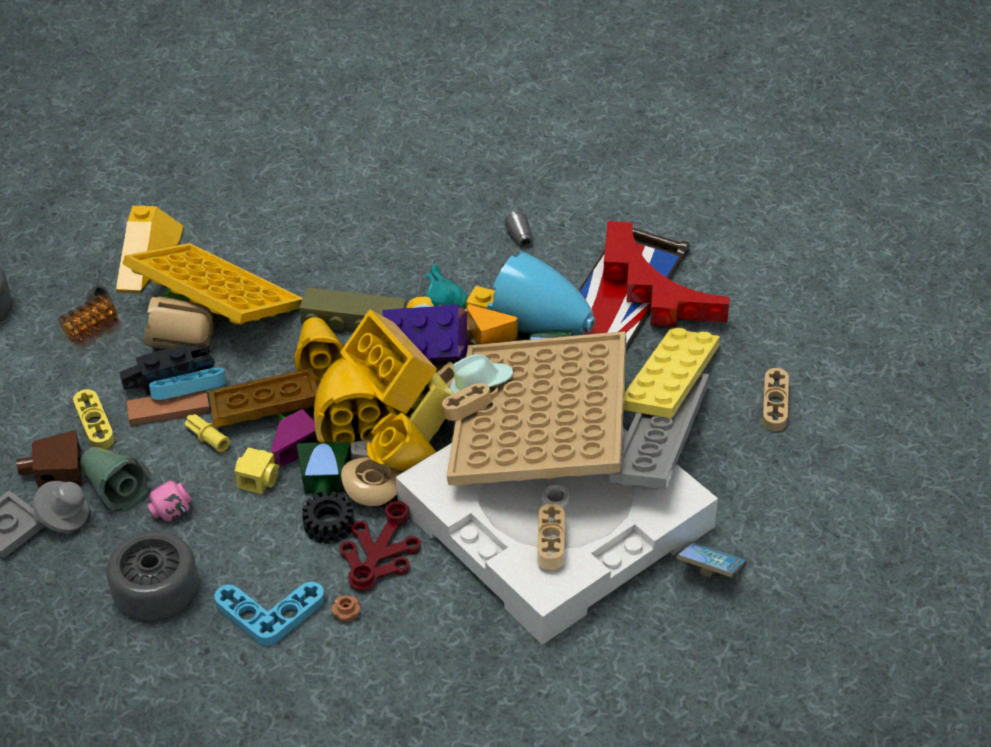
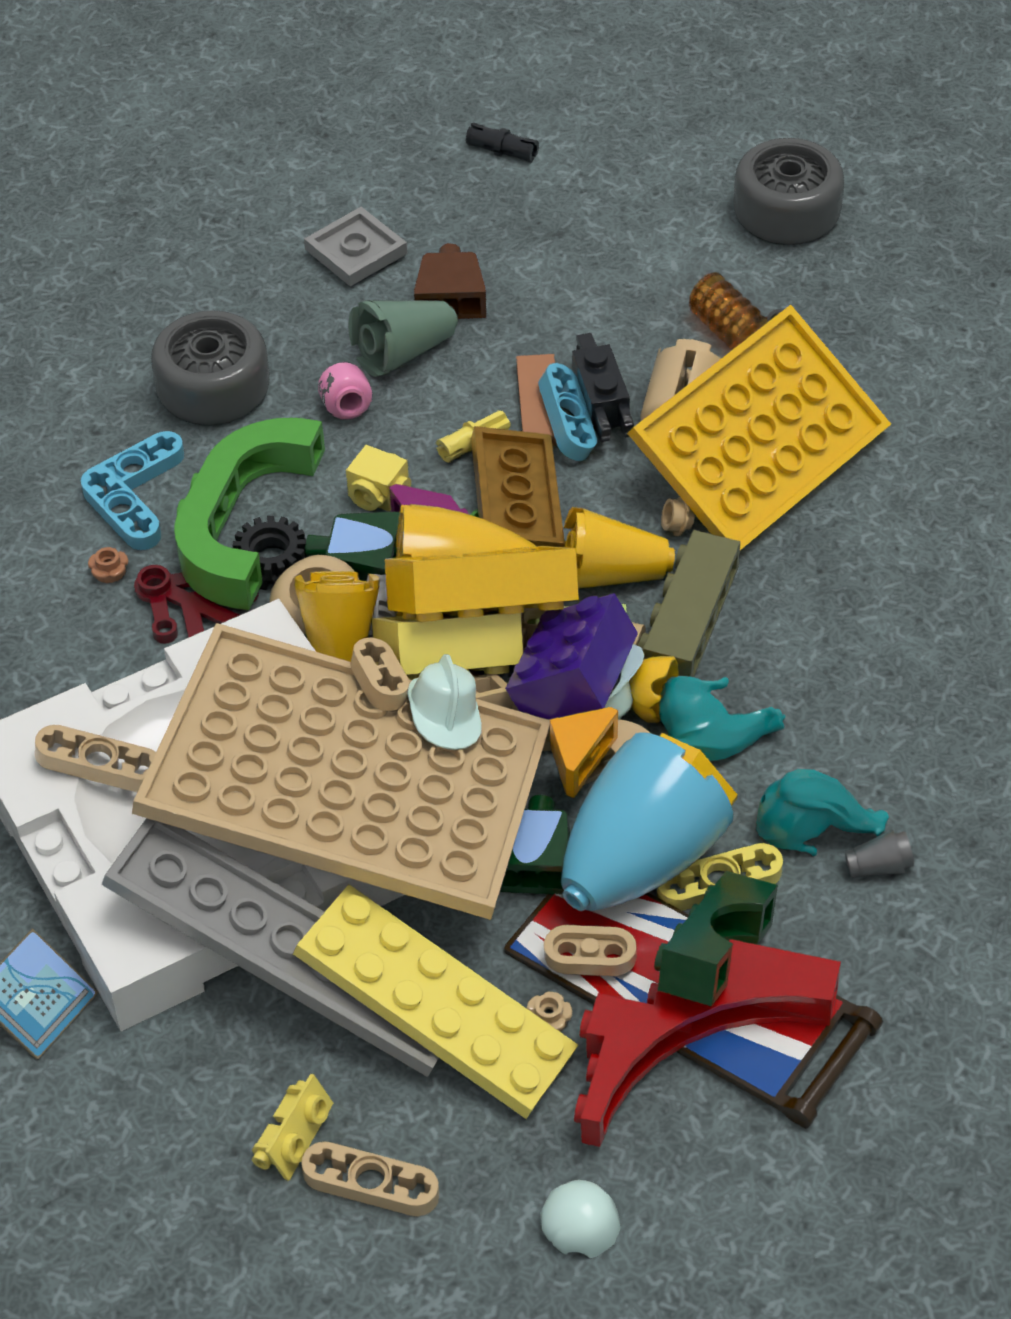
camera: 100 degrees right, 5 degrees up
(60, 506) = (357, 278): light grey plate -> none
(95, 410) = (501, 323): light yellow beam -> none
(146, 230) = (904, 375): yellow wedge -> none
(281, 330) = (677, 516): none -> tan plate
(295, 551) = (265, 447): none -> bright green arch
(498, 247) = (806, 805): none -> teal piece
(613, 319) = (590, 950): none -> tan plate
(629, 261) = (699, 953): none -> dark green arch
(650, 343) = (551, 1000): none -> tan plate
(767, 433) = (300, 1116): none -> light yellow hinge
(770, 317) = (580, 1219): none -> light aqua hair

